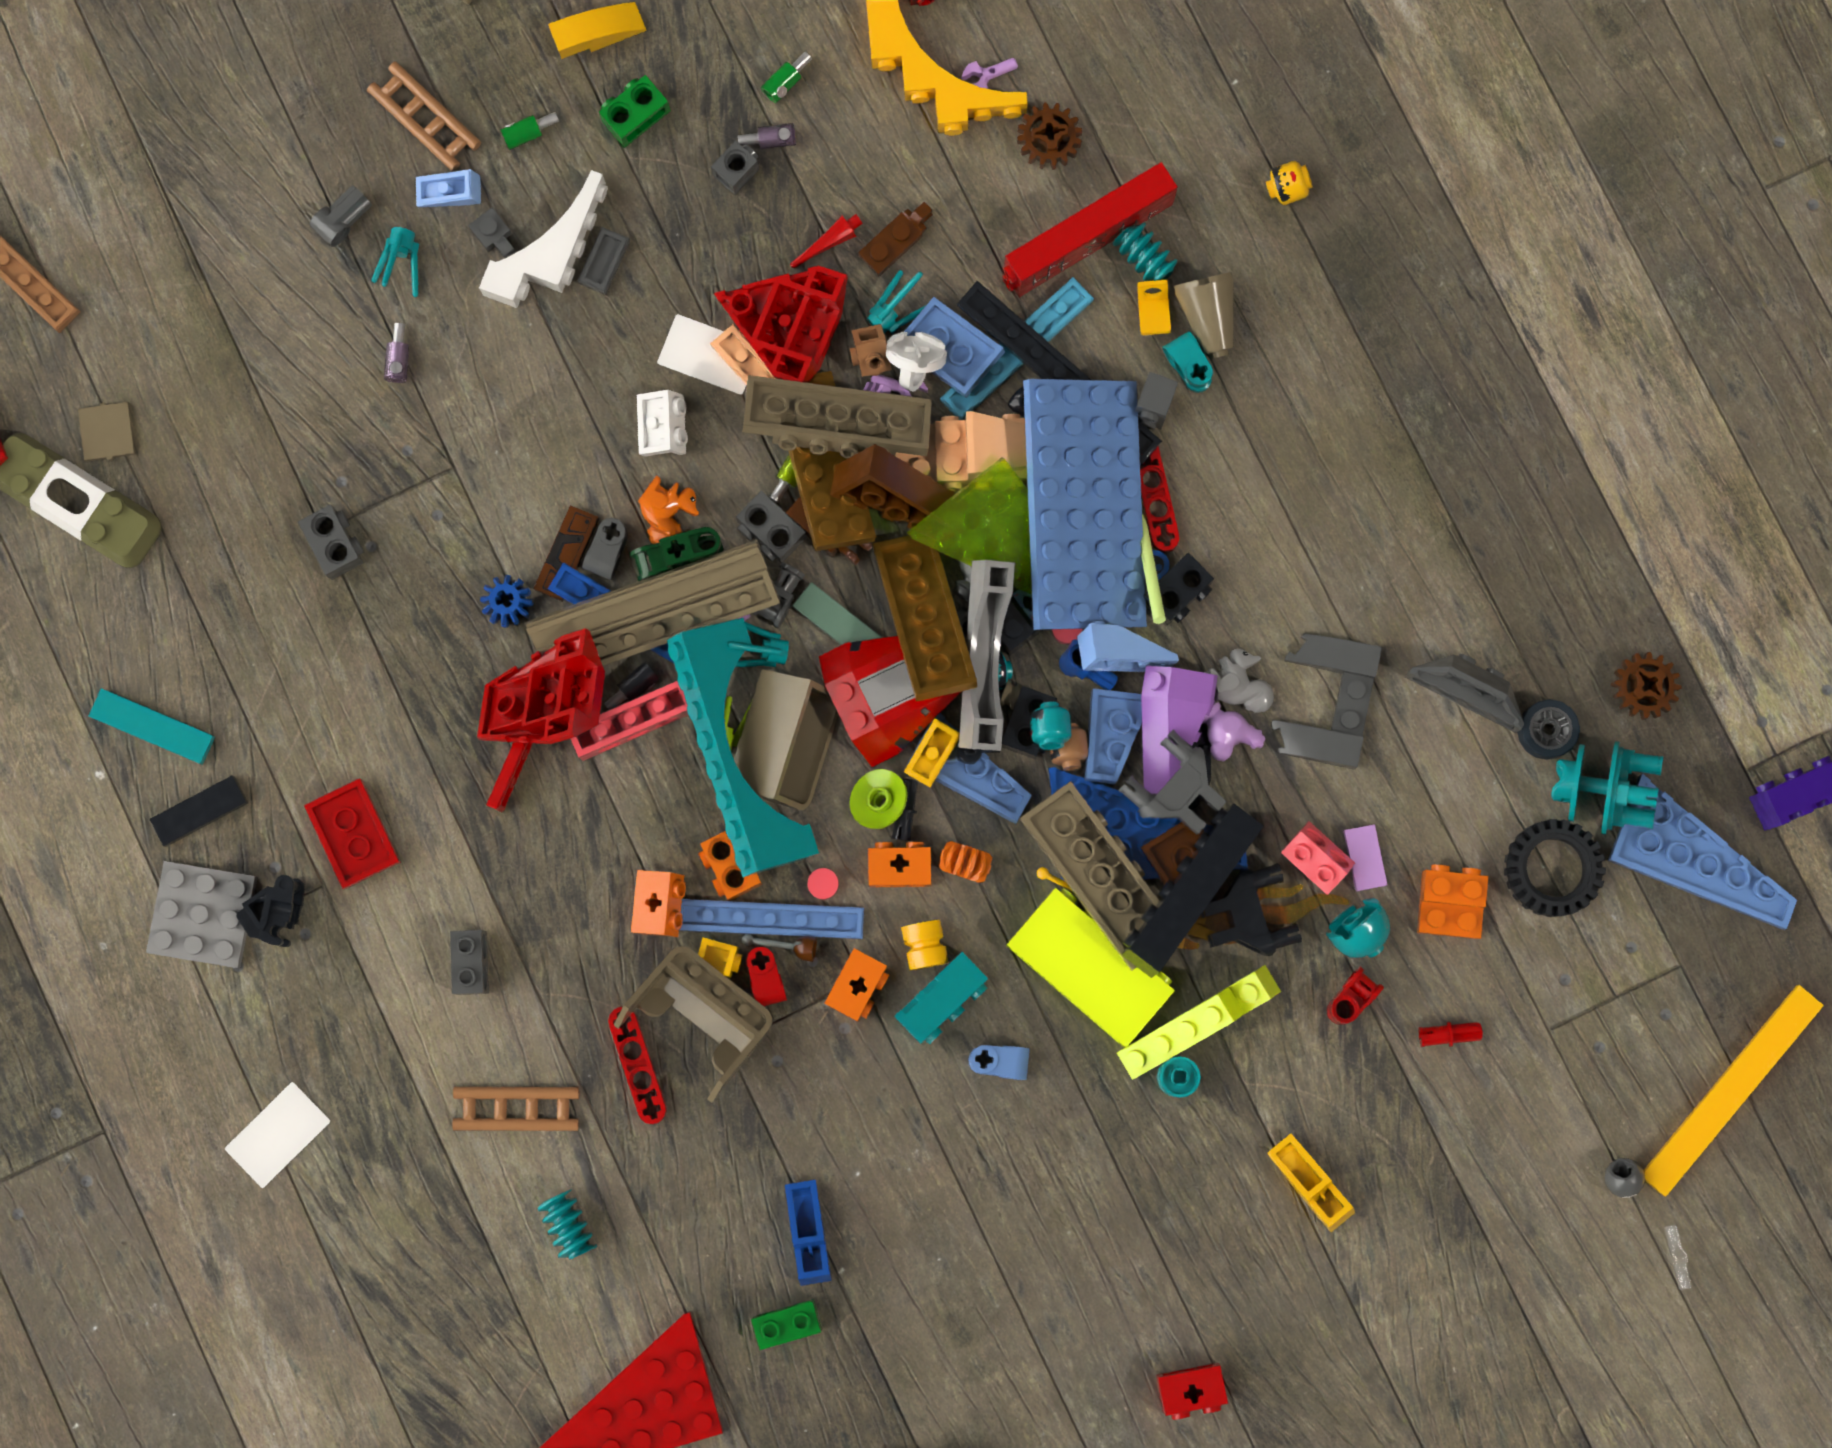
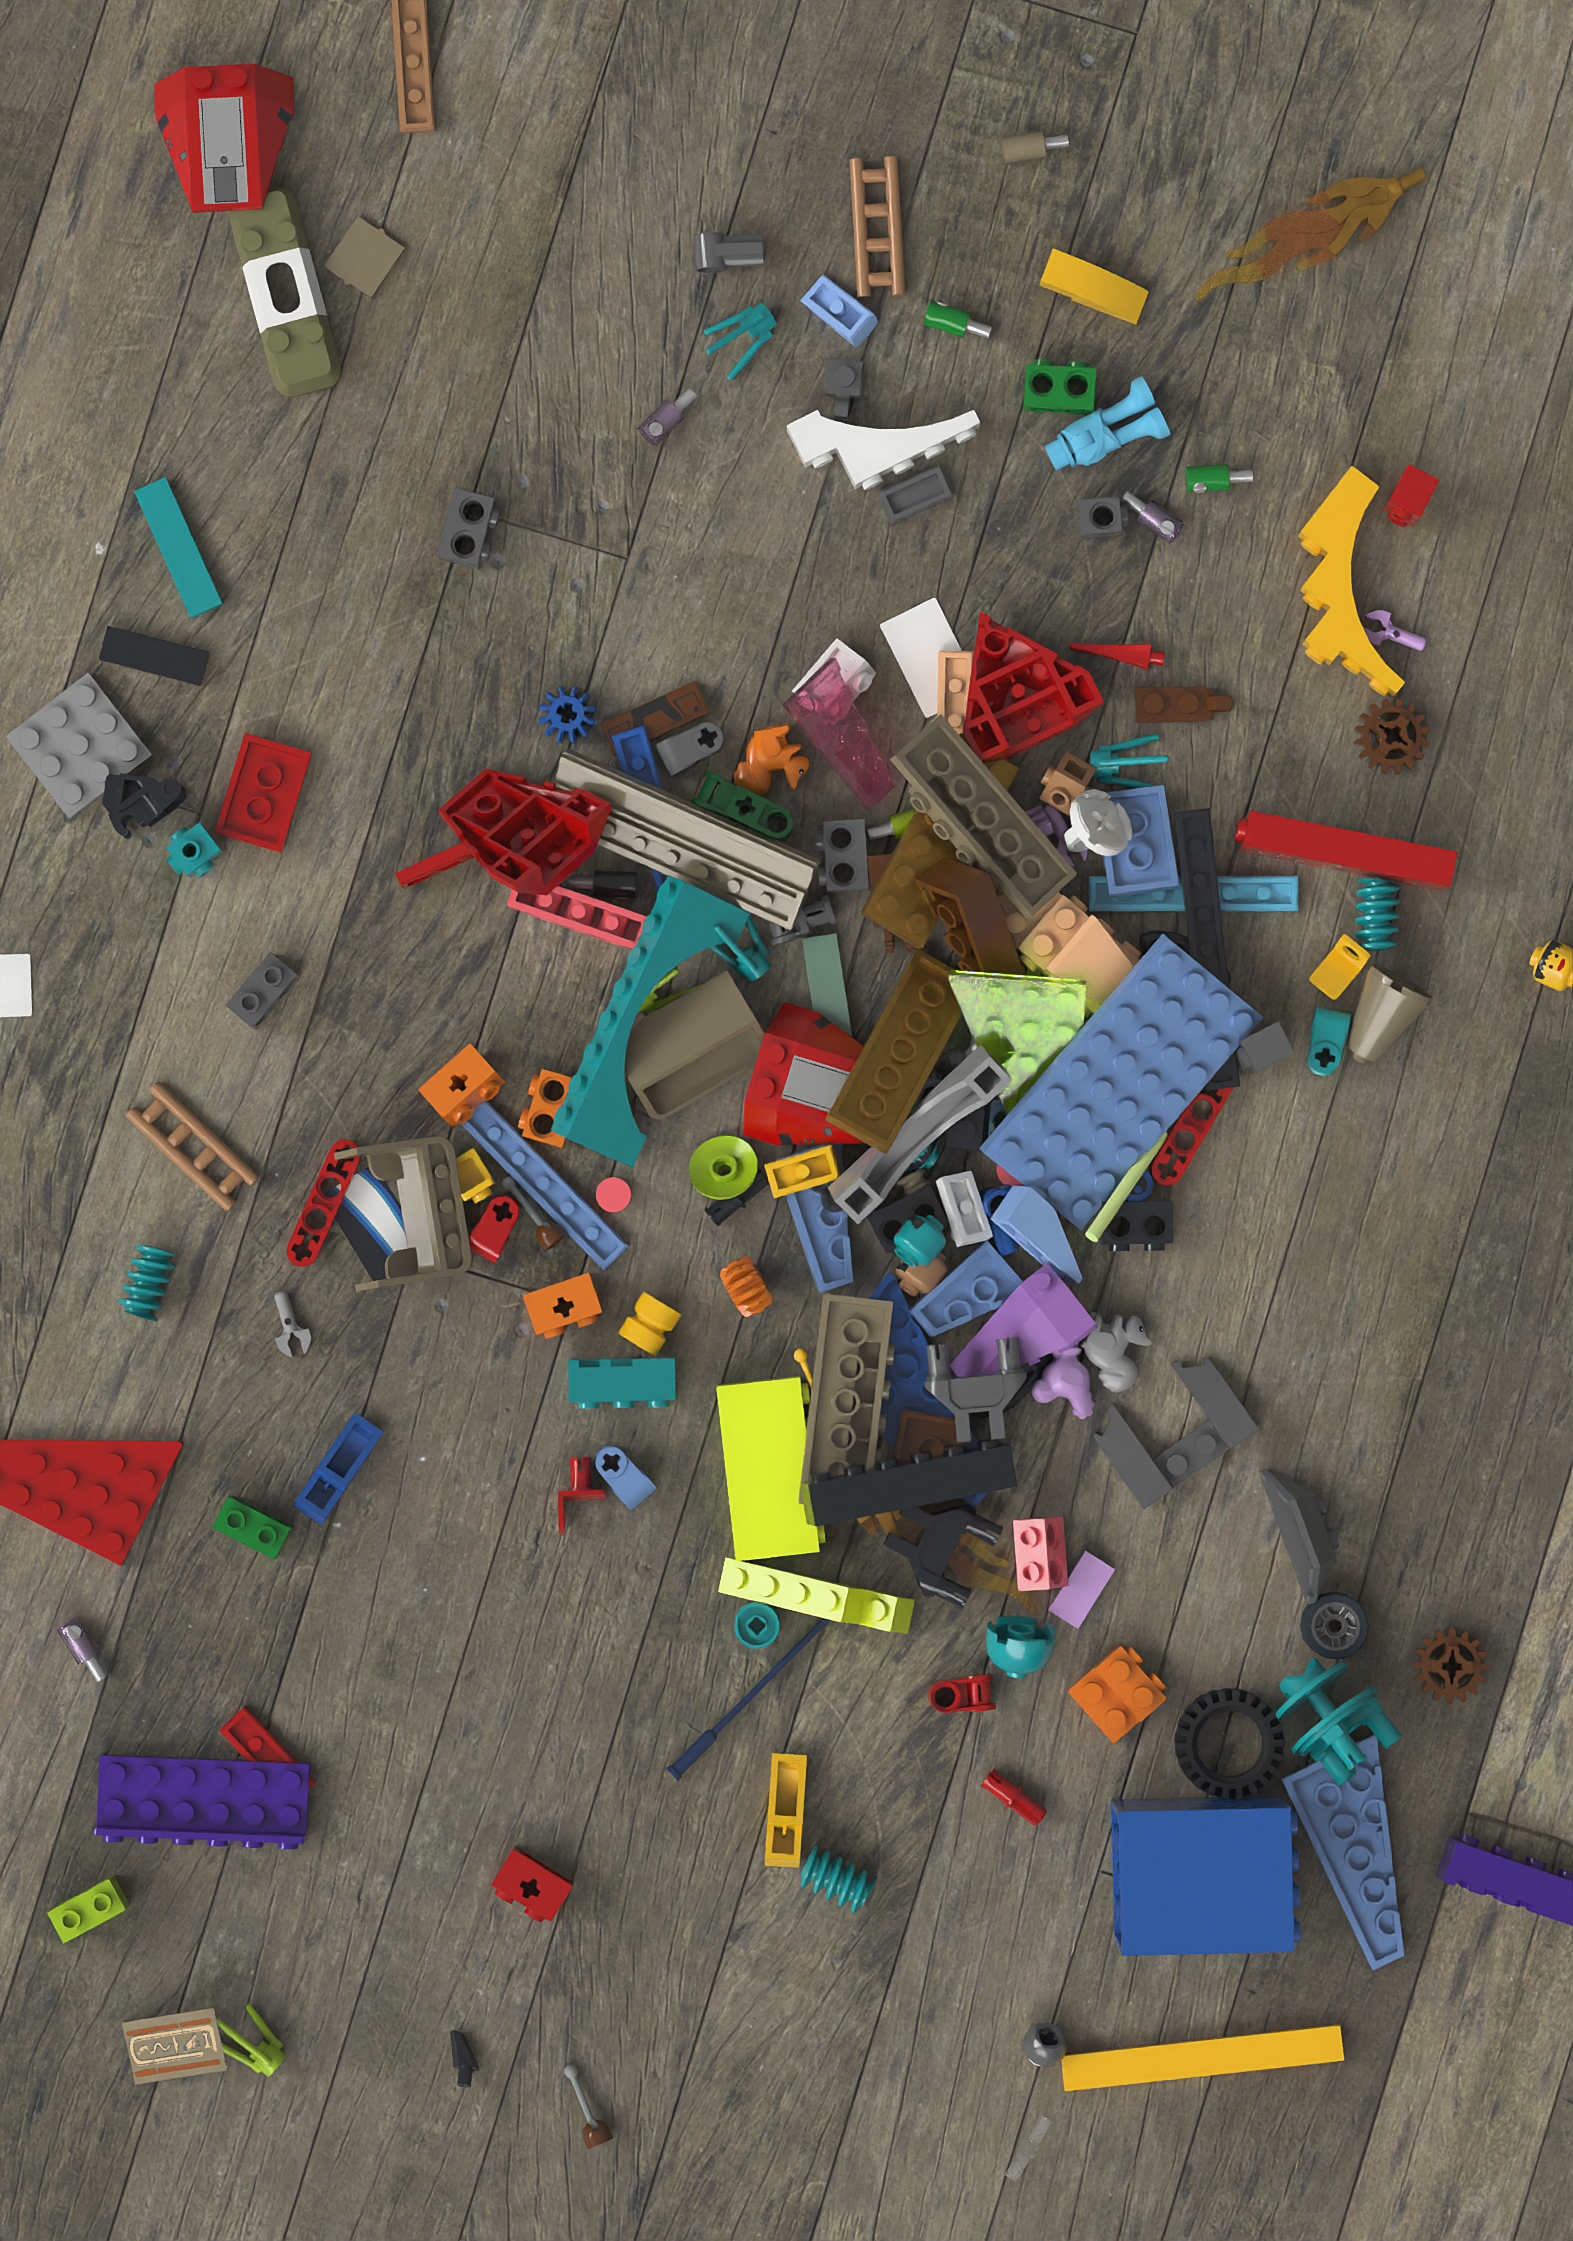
camera: 45 degrees right, 5 degrees up
(328, 910) = (206, 851): none -> teal brick
(679, 1048) = (371, 1221): none -> sticker
(682, 122) = (1090, 438): none -> medium azure piece
(689, 1167) = (290, 1325): none -> light grey bar
(693, 450) = (832, 723): none -> clear pink wing
(915, 875) = (669, 1233): orange brick -> none
(979, 1096) = (579, 1489): none -> red bracket
(1059, 681) = (964, 1208): none -> white tile
(1215, 1188) = (710, 1736): none -> dark blue piece
(1387, 1196) = (836, 1879): none -> teal piece
(1626, 966) = (1204, 1875): none -> blue container

